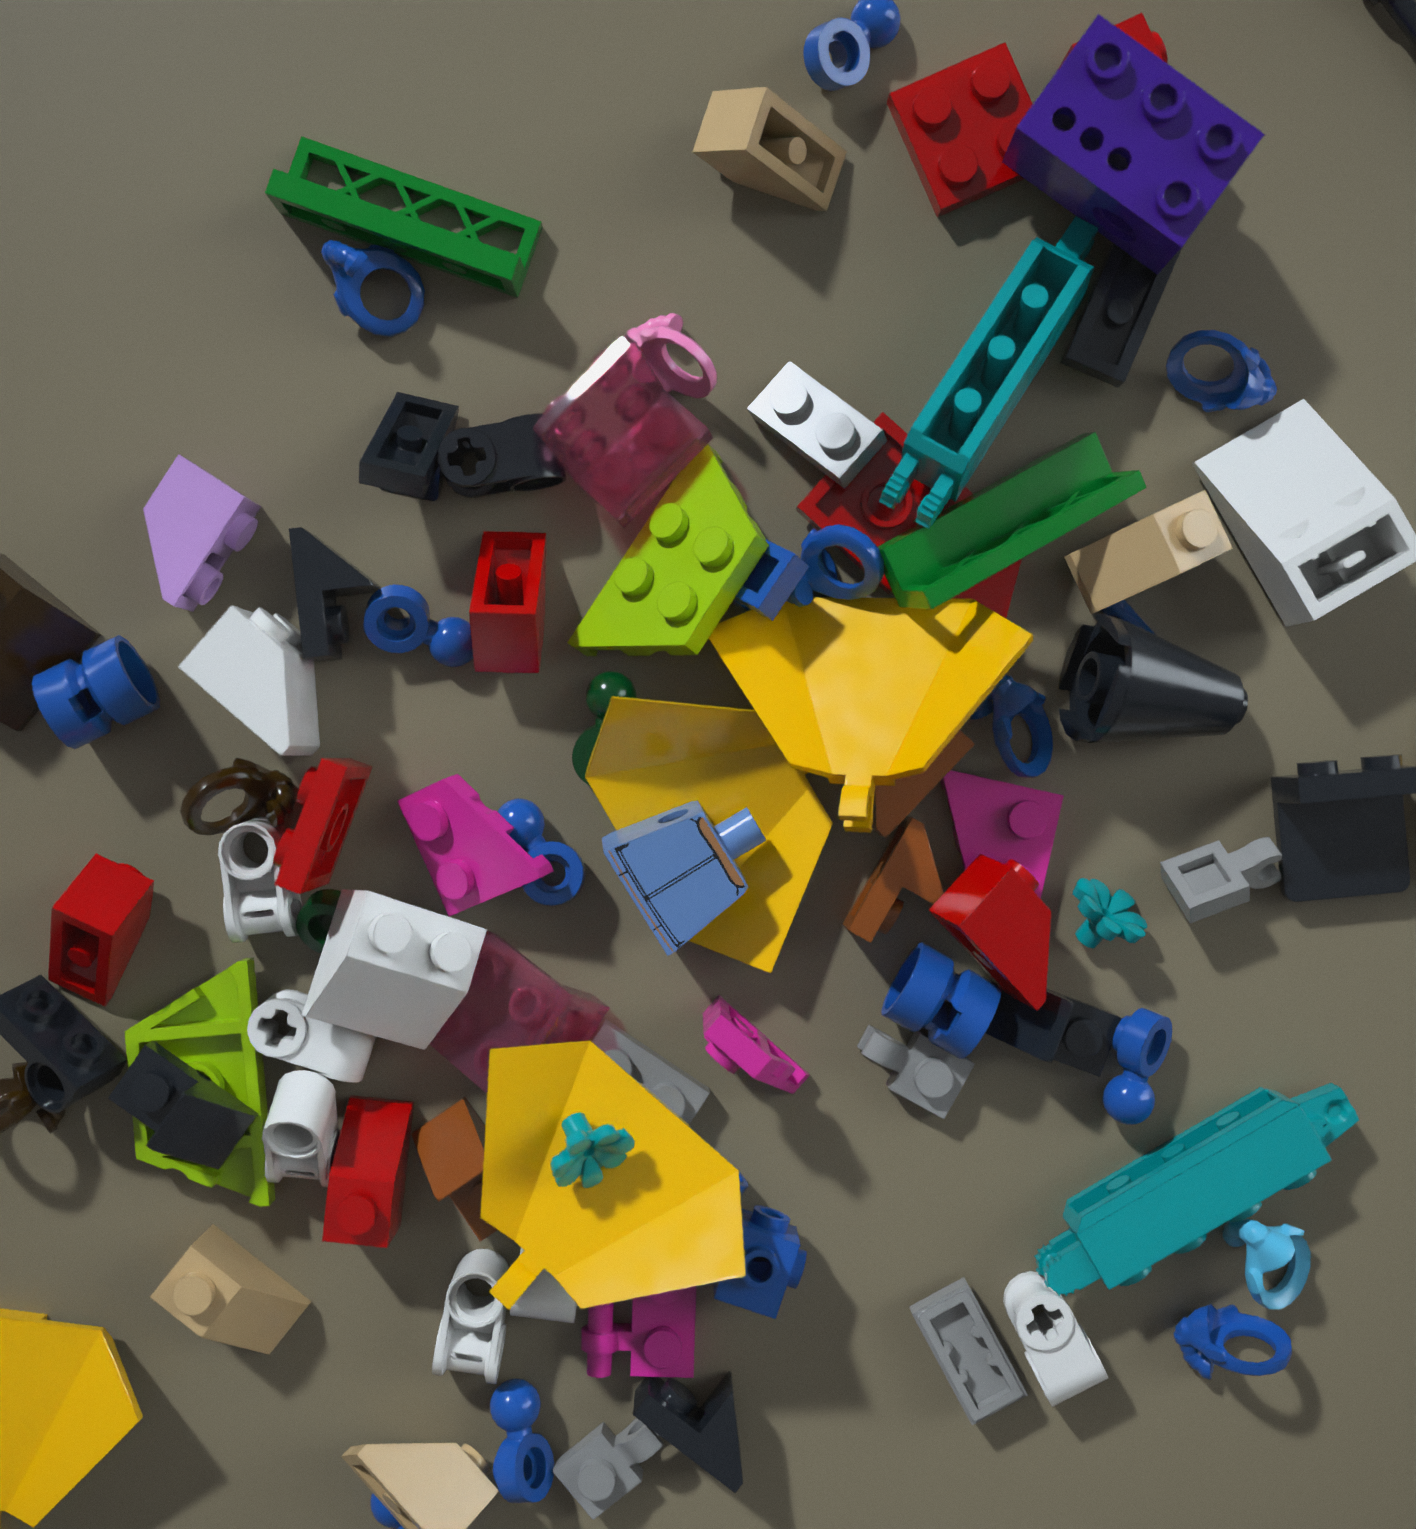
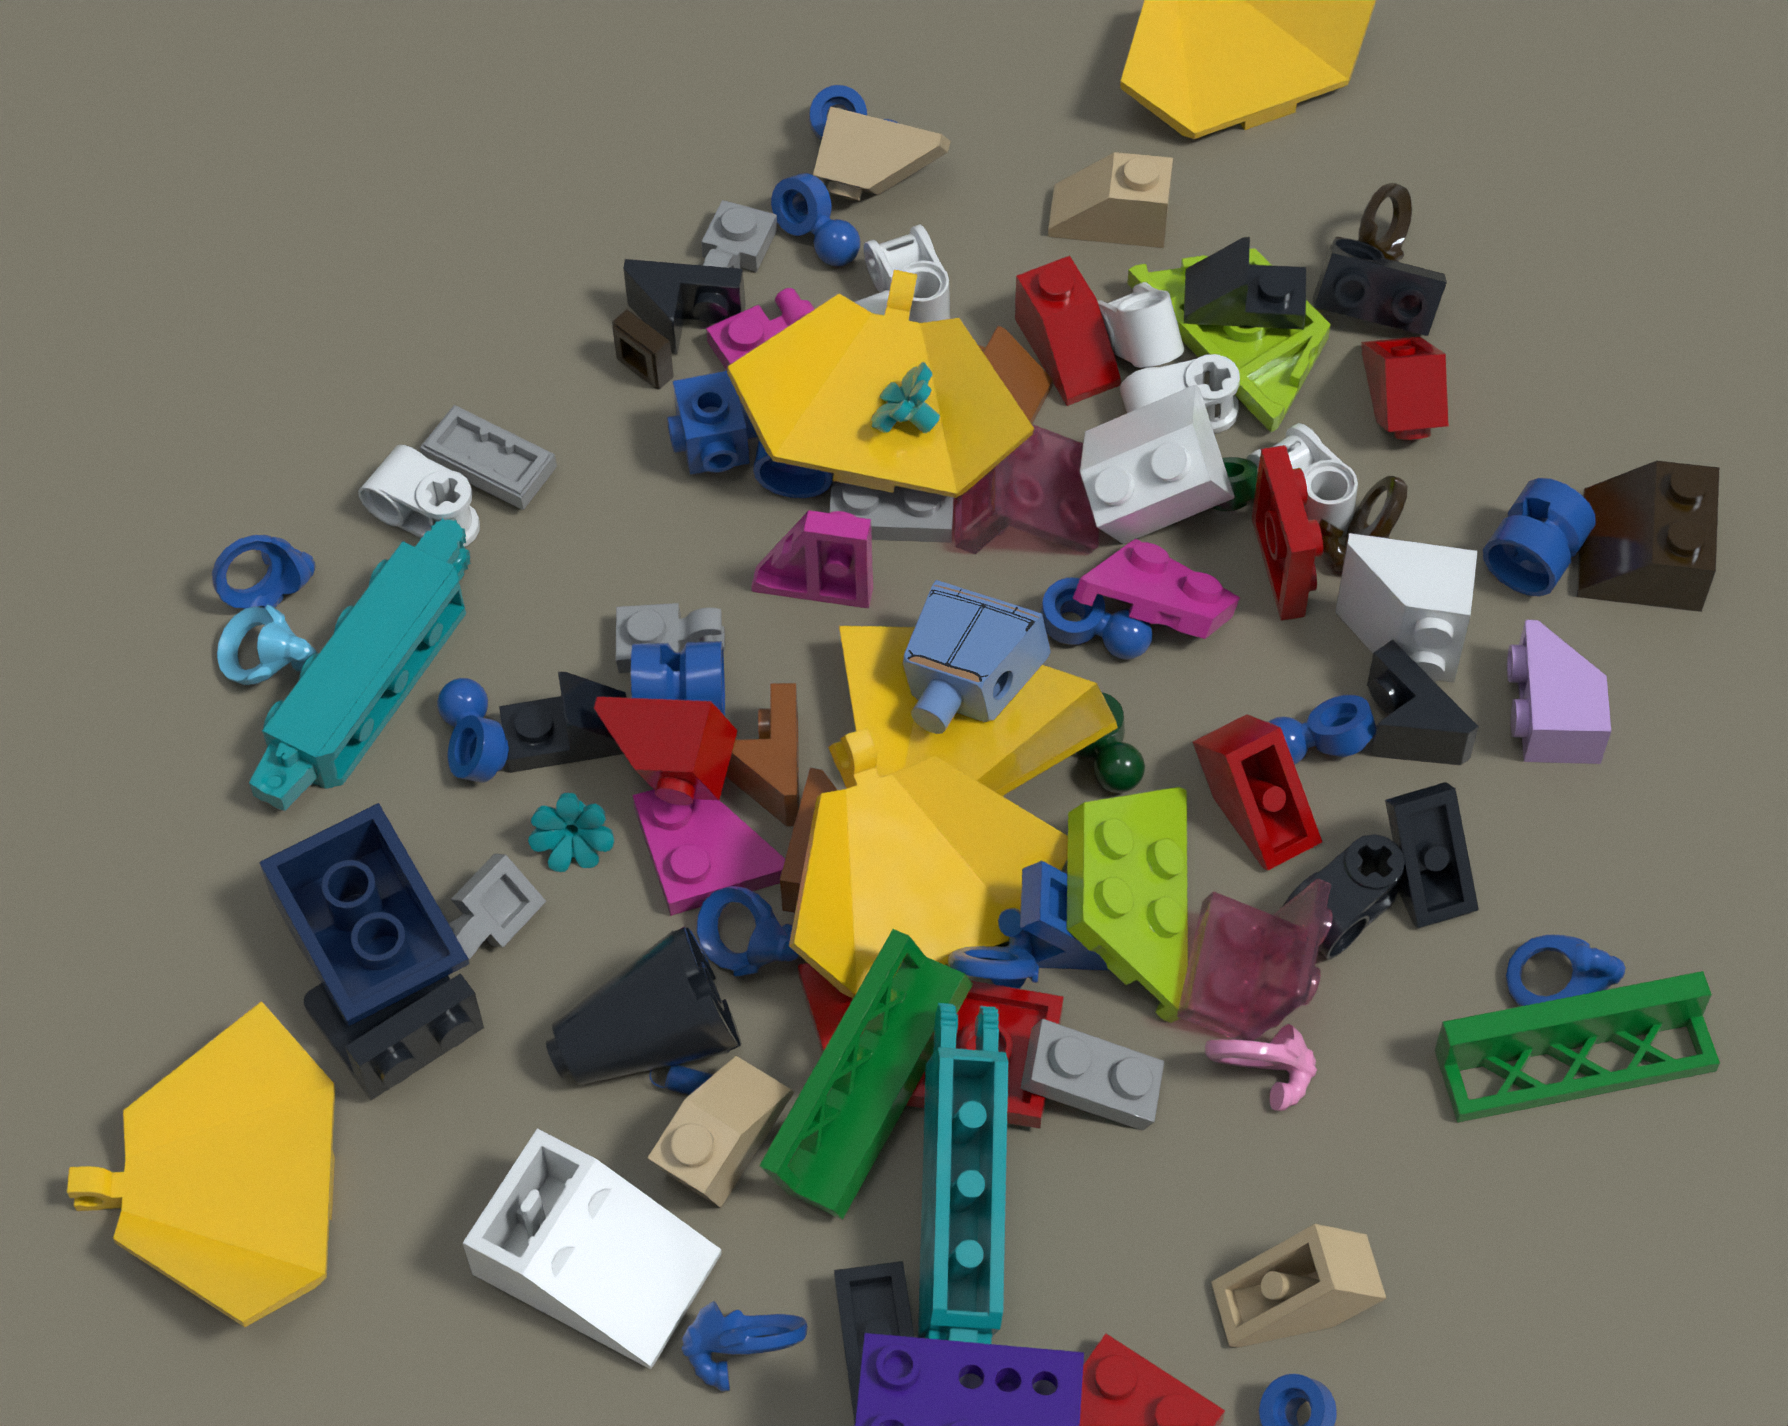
camera: 150 degrees right, 30 degrees down
(767, 1386) = (642, 349): none -> dark brown tile
(1338, 918) = (362, 914): none -> dark blue slope

